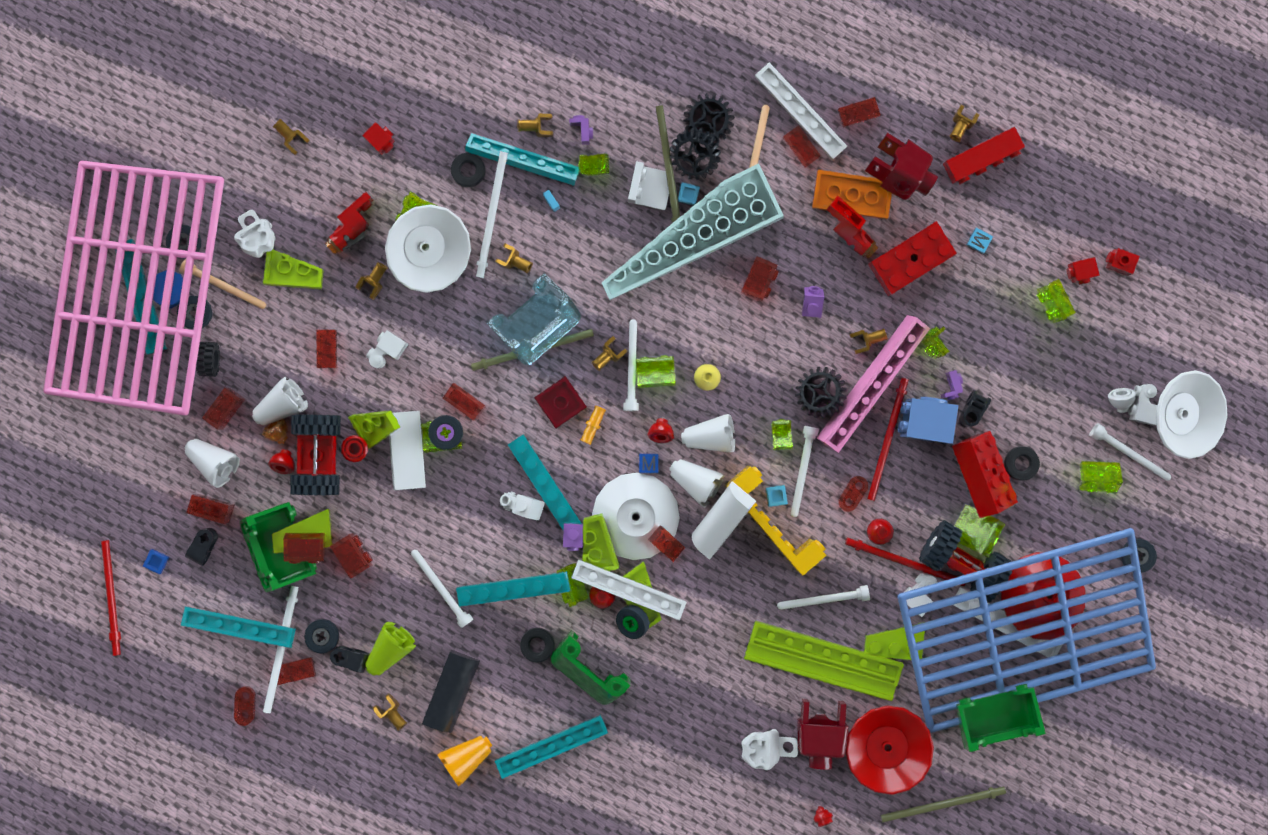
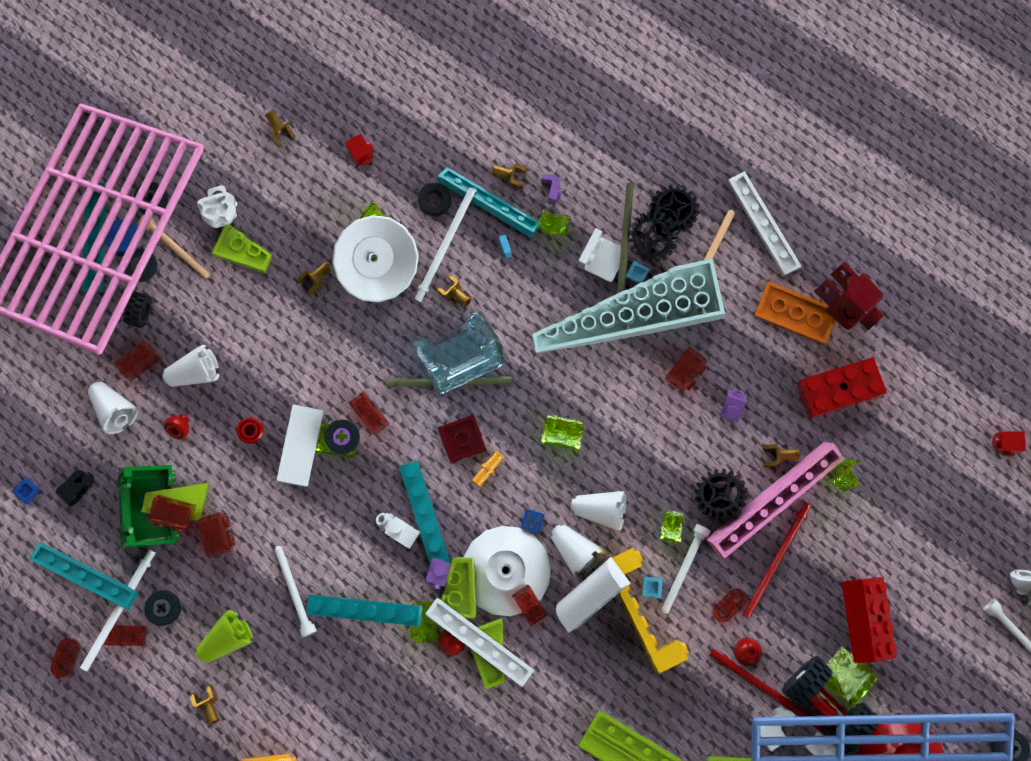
camera: 20 degrees right, 10 degrees down
(210, 508) = (94, 452): clear red brick -> none
(276, 431) = (181, 395): clear orange brick -> none
(315, 455) = (211, 425): plate -> none
(326, 348) = (253, 330): clear red plate -> none
(352, 658) = (185, 640): black piece -> none
(353, 225) = (312, 222): red plate -> none
(374, 426) = (275, 414): lime wing -> none
(387, 345) = (310, 341): white brick -> none
(450, 692) = (272, 700): black brick -> none
(540, 656) = (384, 680): black tyre -> none
(602, 691) = (396, 700): green windscreen -> none
(607, 355) = (520, 405): pearl gold piece -> none
(631, 403) = (531, 457): white piece -> none
(639, 618) = (482, 676): black bush -> none
(661, 431) = (552, 492): red brick -> none
(707, 377) = (611, 452): light yellow brick -> none
(801, 146) = (757, 256): clear red plate -> none
(850, 228) = (786, 344): red plate -> none
(859, 112) = (819, 238): clear red plate -> none
(861, 593) = (714, 710): white piece -> none
(928, 420) = (823, 550): medium blue brick -> none
(955, 381) = (857, 519): medium lavender bracket -> none
(962, 124) = (918, 273): pearl gold piece -> none
(976, 406) = (873, 549): black piece -> none
(979, 240) = (911, 388): medium azure tile -> none
(983, 155) = (932, 308): red brick -> none
(1030, 472) = (917, 611): black tyre -> none
(1055, 301) = (975, 466): clear neon green bracket -> none
(1100, 476) = (987, 655): clear neon green bracket -> none

